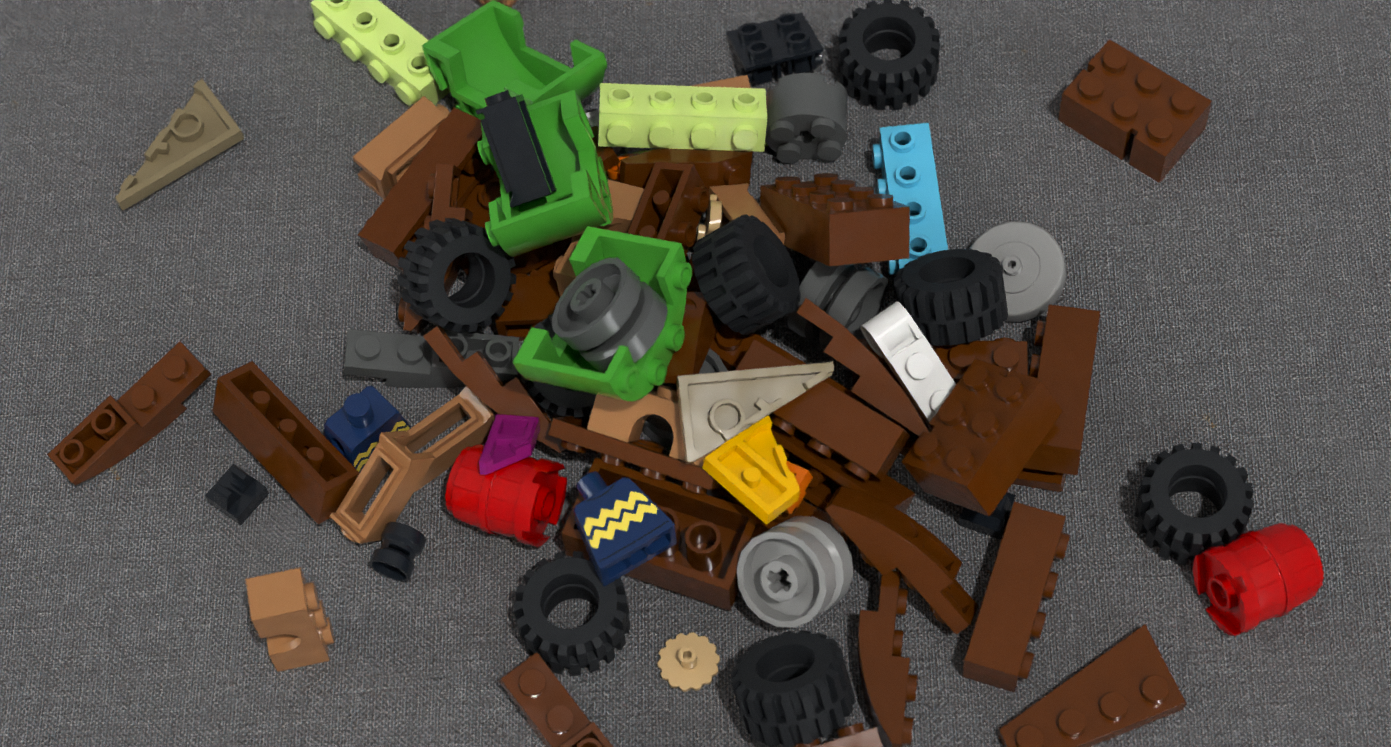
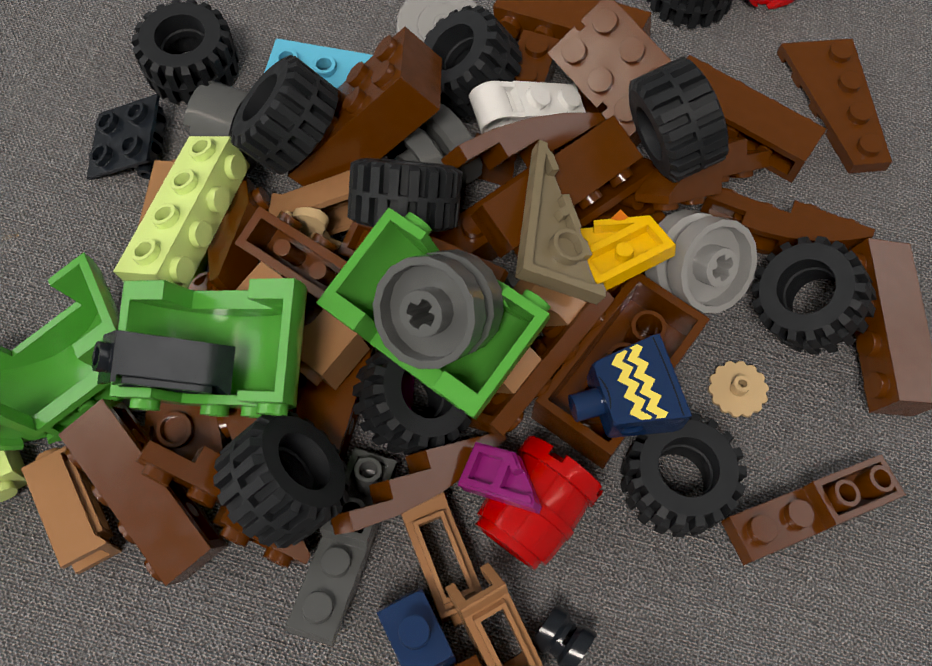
camera: 80 degrees left, 5 degrees up
(800, 151) = (284, 115): none -> black tyre
(897, 475) = (678, 119): none -> black tyre

